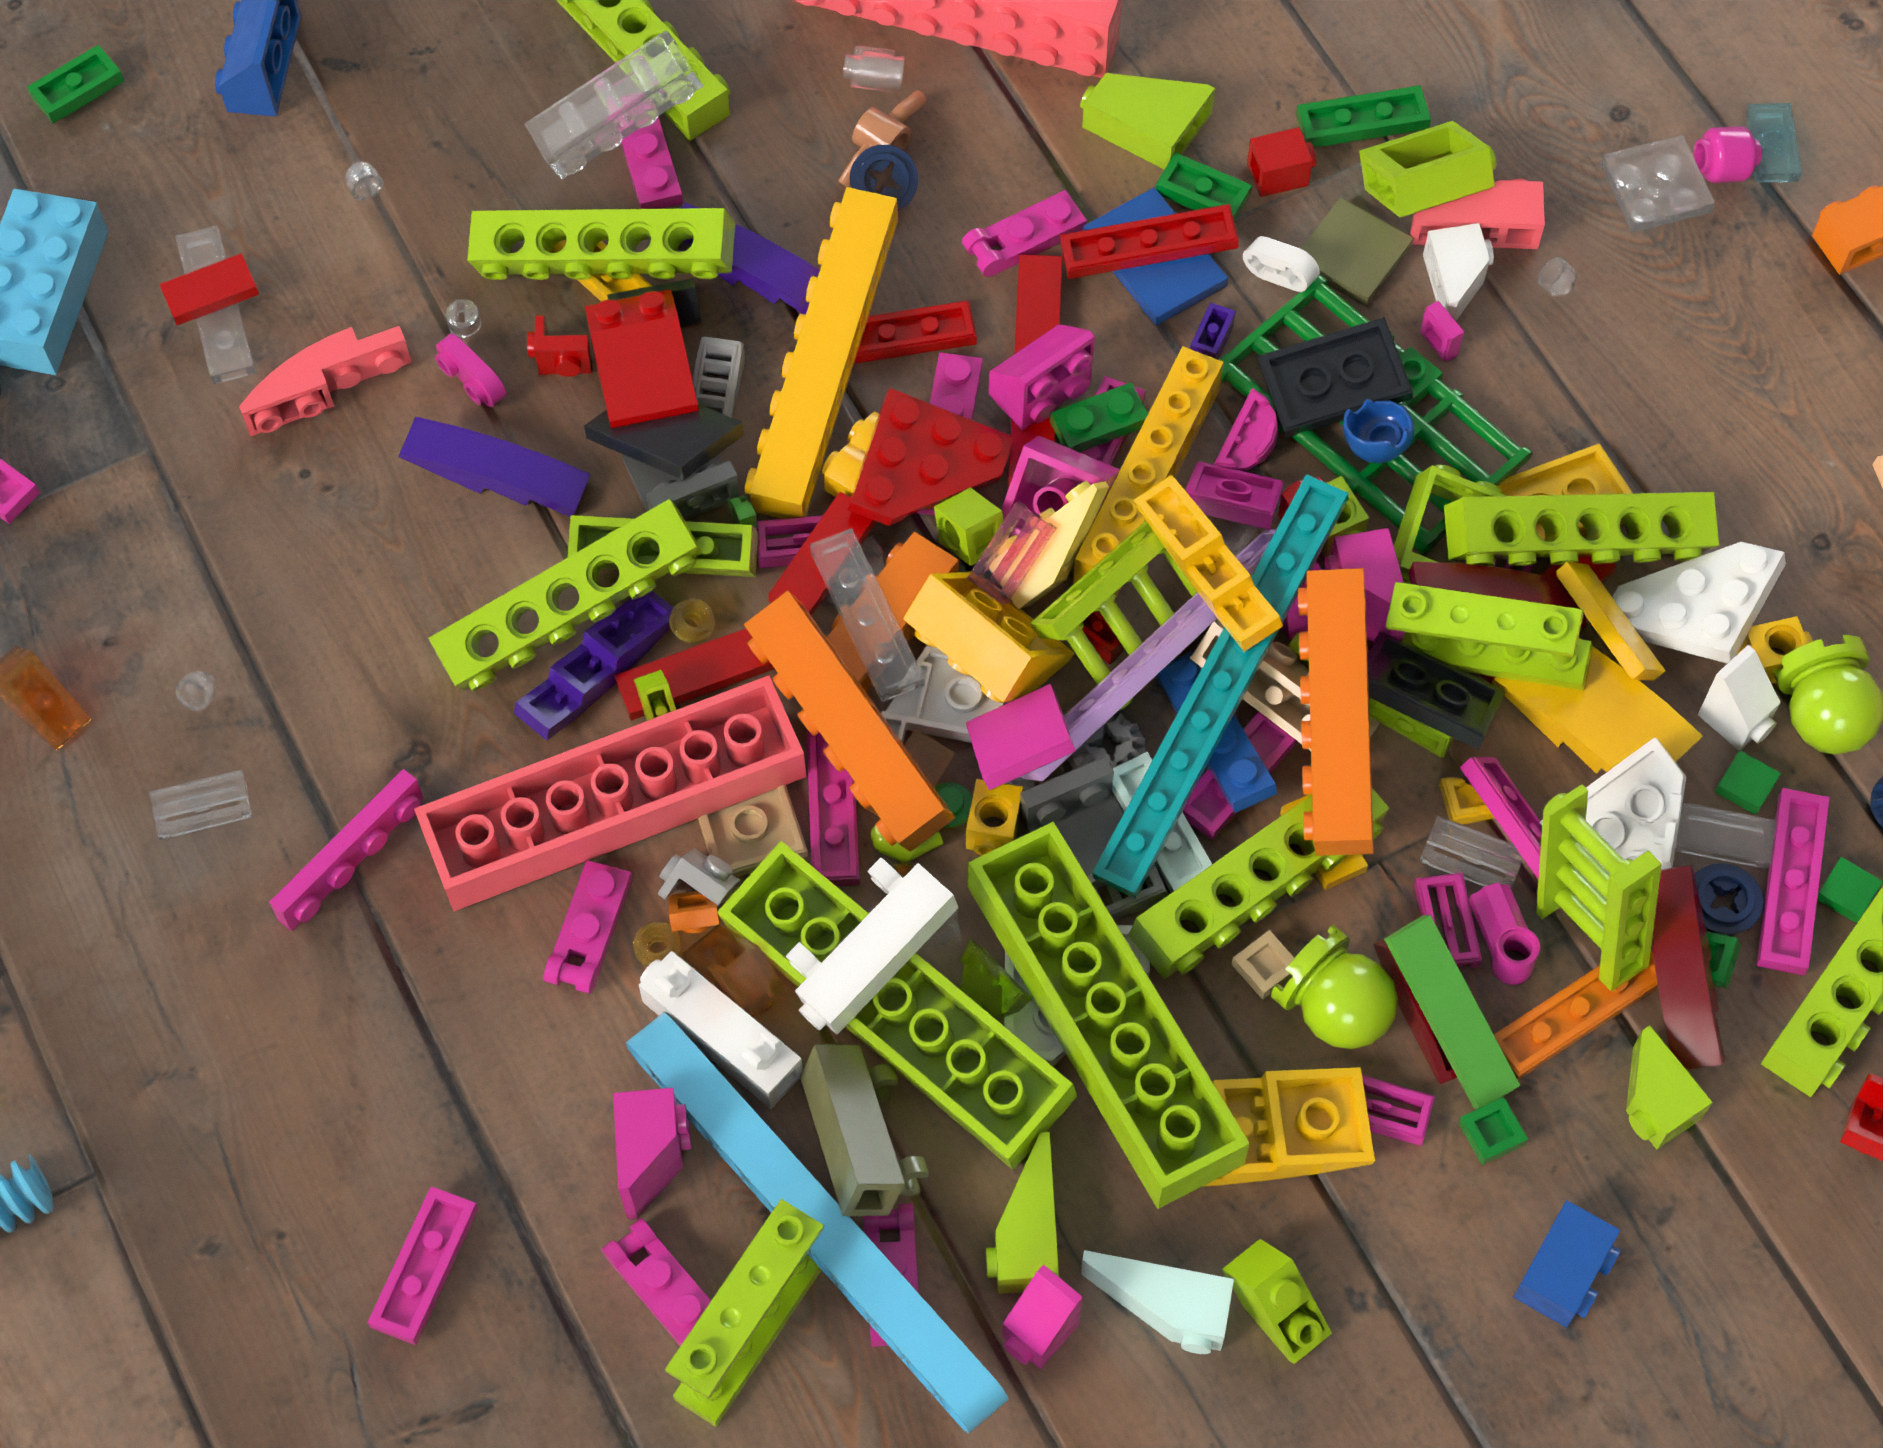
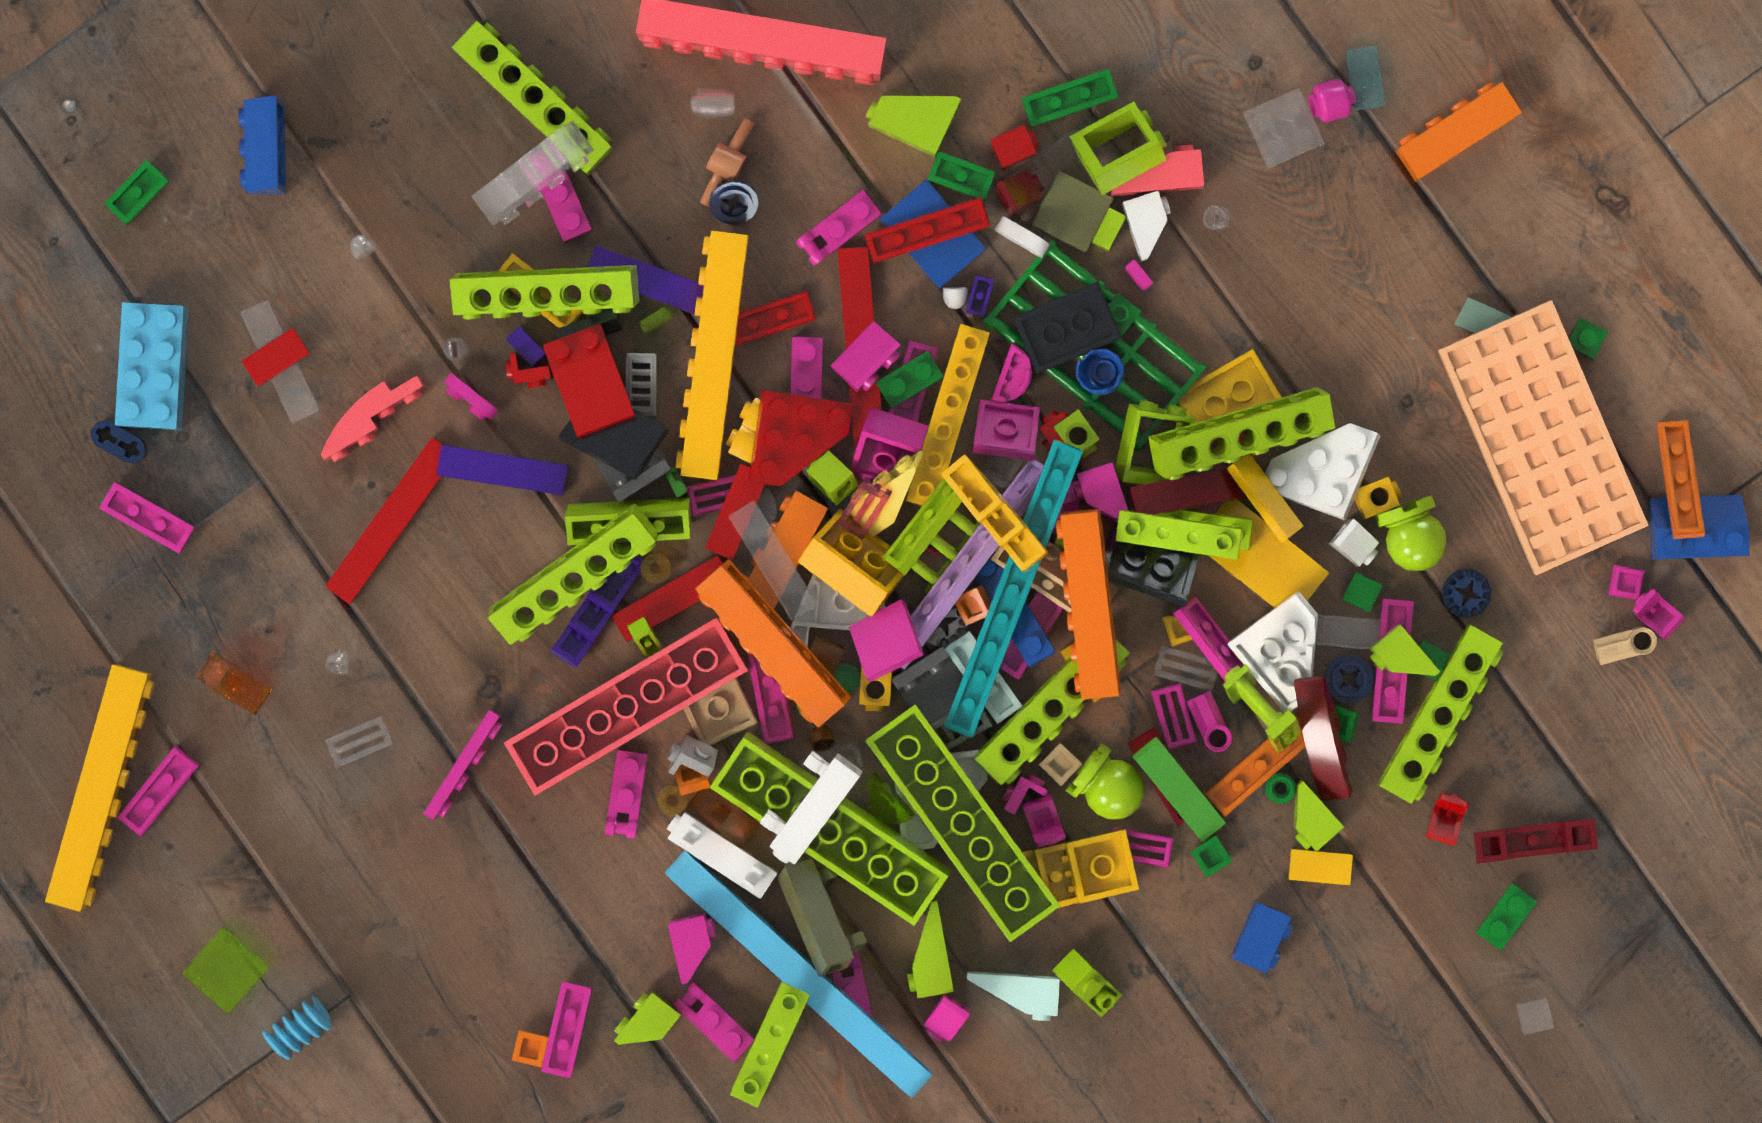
camera: 10 degrees left, 25 degrees up
(312, 524) = (387, 525): none -> red tile
(356, 1286) = (530, 1048): none -> orange plate
(557, 1269) = (650, 1022): none -> lime slope
(560, 316) = (526, 346): none -> dark purple piece
(750, 308) = (655, 320): none -> clear neon green tile
(1154, 717) = (973, 605): none -> orange plate
(1177, 329) = (955, 296): none -> white hinge
(1190, 999) = (1014, 794): none -> dark pink bracket
(1231, 1041) = (1043, 821): none -> dark pink bracket
(1278, 201) = (1019, 192): none -> dark red slope
(1403, 276) = (1108, 229): none -> lime piece
(1615, 1034) = (1289, 792): none -> green plate
(1667, 1172) = (1320, 867): none -> yellow tile
(1815, 860) = (1401, 654): none -> lime slope

